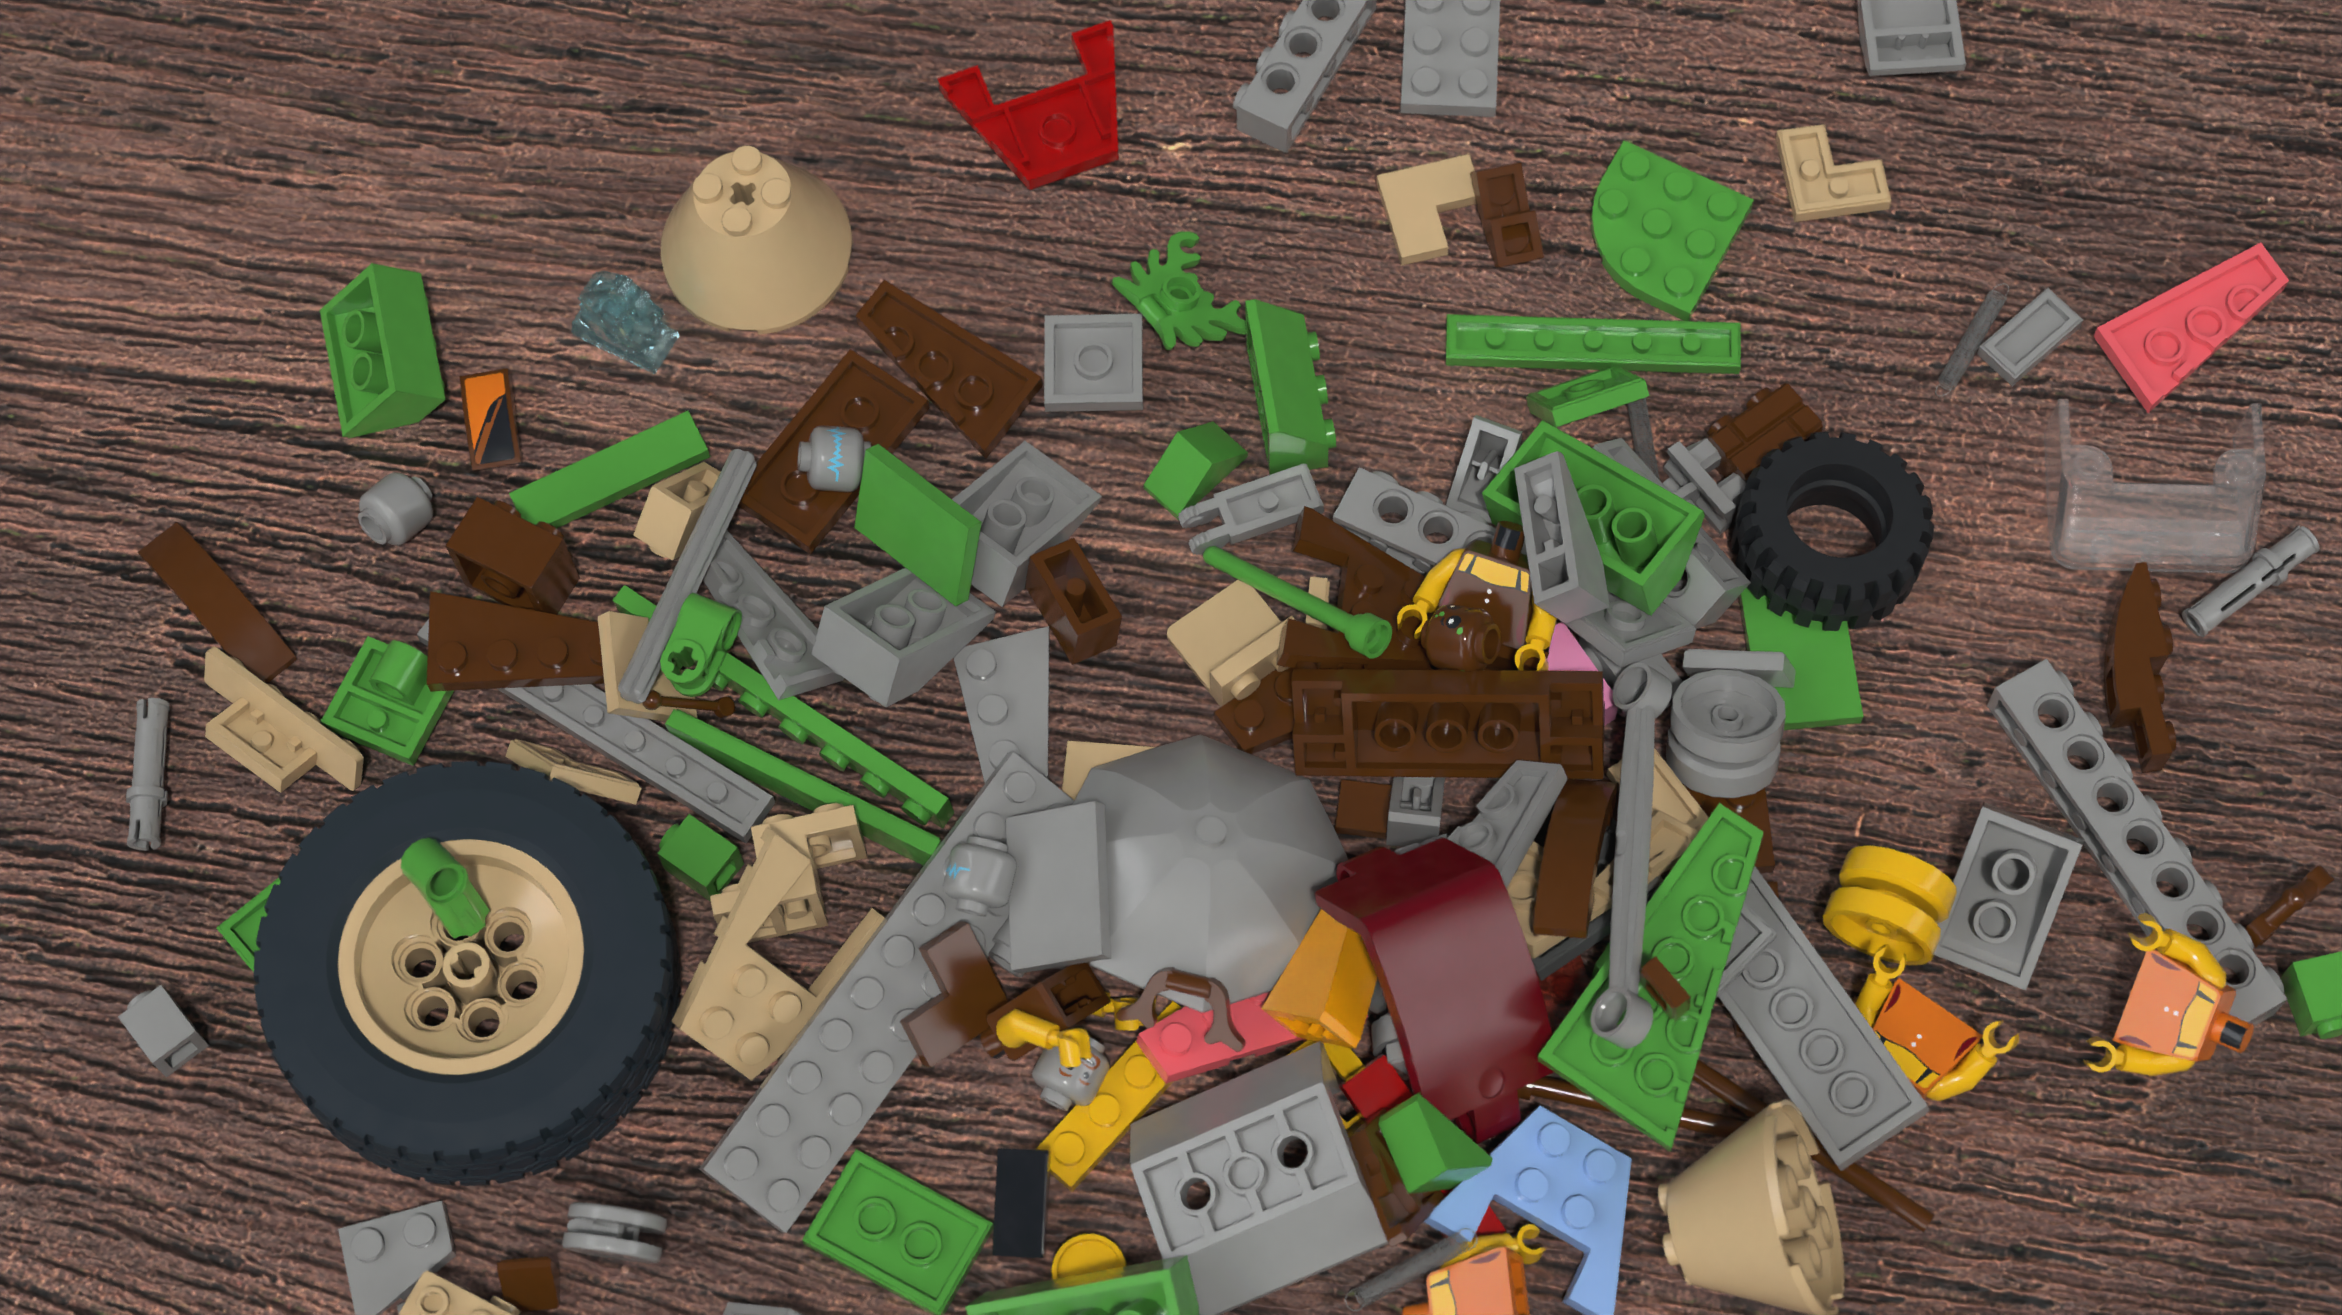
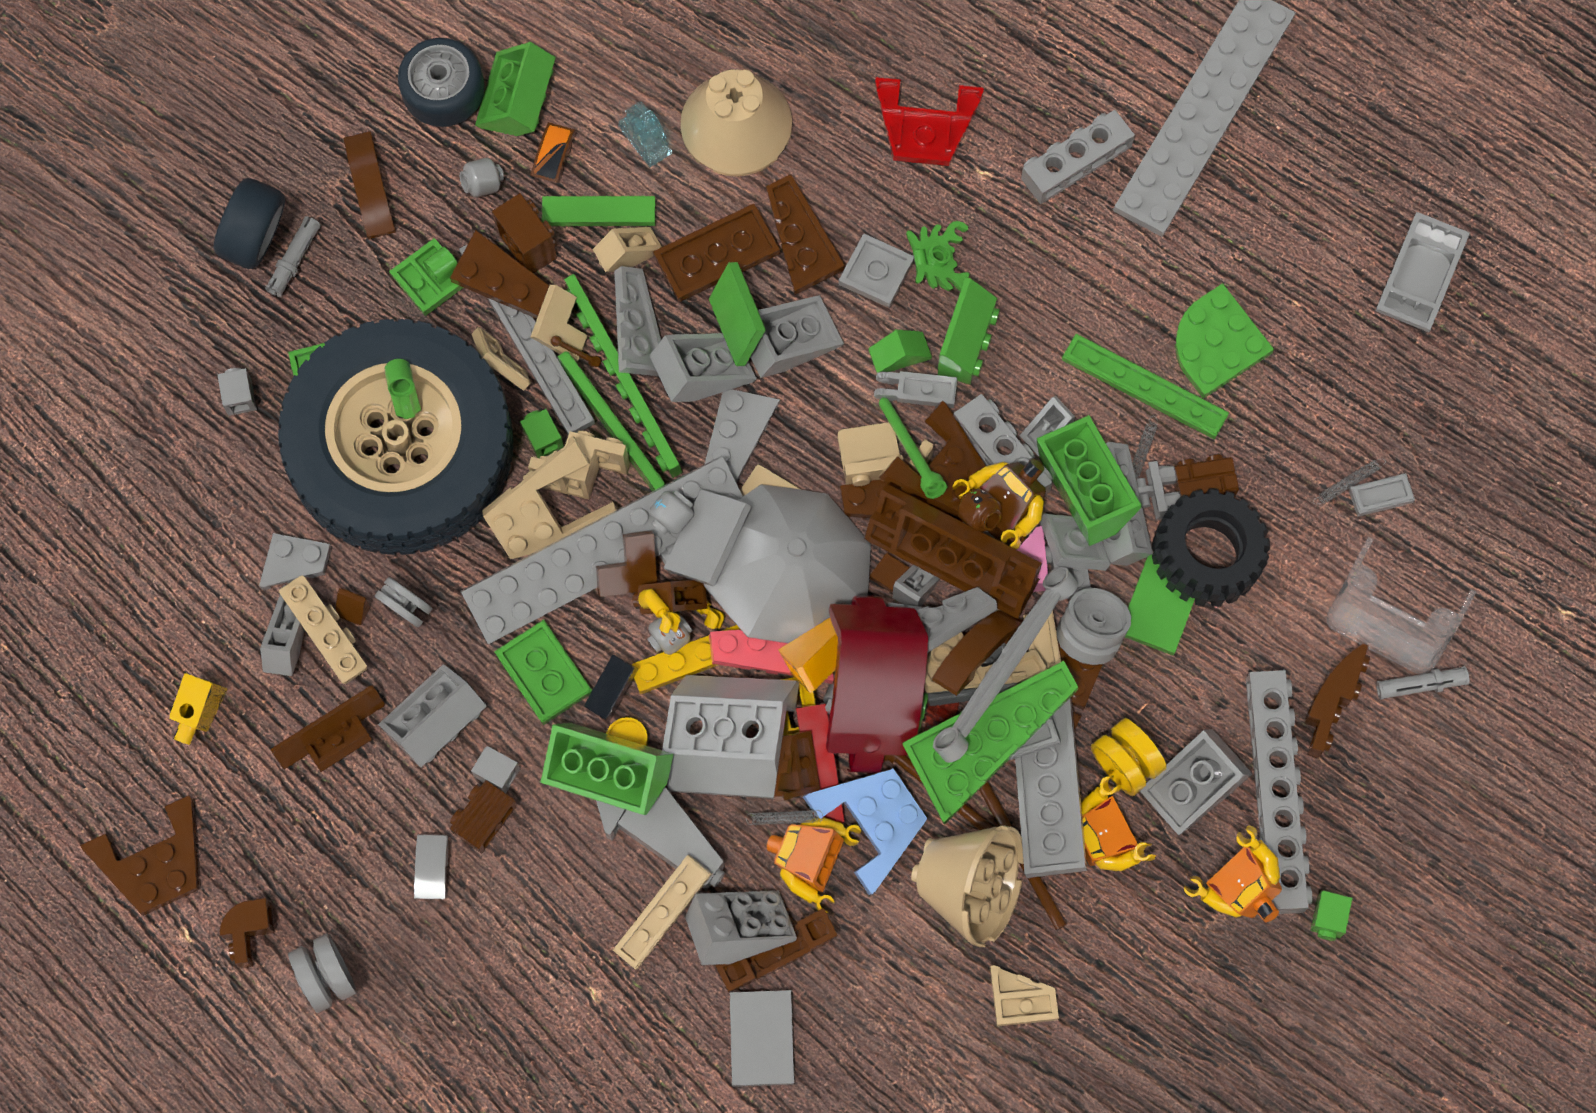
camera: 25 degrees right, 5 degrees up
(51, 751) = (249, 223): none -> black wheel
(256, 392) = (444, 100): none -> wheel
(271, 732) = (362, 265): tan bracket -> none
(687, 574) = (606, 284): light grey axle -> none
(701, 636) = (595, 321): bright green piece -> none
(833, 458) = (712, 258): light grey head -> none
(1073, 601) = (797, 392): reddish brown brick -> none
(1208, 988) = (755, 627): reddish brown helmet -> none
(1416, 197) = (1098, 260): tan tile -> none
(1429, 1147) = (821, 762): bright green slope -> none
(1506, 215) = (1137, 294): reddish brown slope -> none
(1559, 542) = (1056, 484): light grey slope -> none
(1586, 396) = (1122, 413): bright green tile -> none
(1664, 989) = (981, 741): reddish brown tile -> none
(1769, 666) = (1133, 601): light grey tile -> none
(1819, 187) = (1315, 359): tan tile -> none
(2183, 327) = (1464, 530): coral wing -> none
(2291, 900) = (1341, 859): reddish brown arm -> none

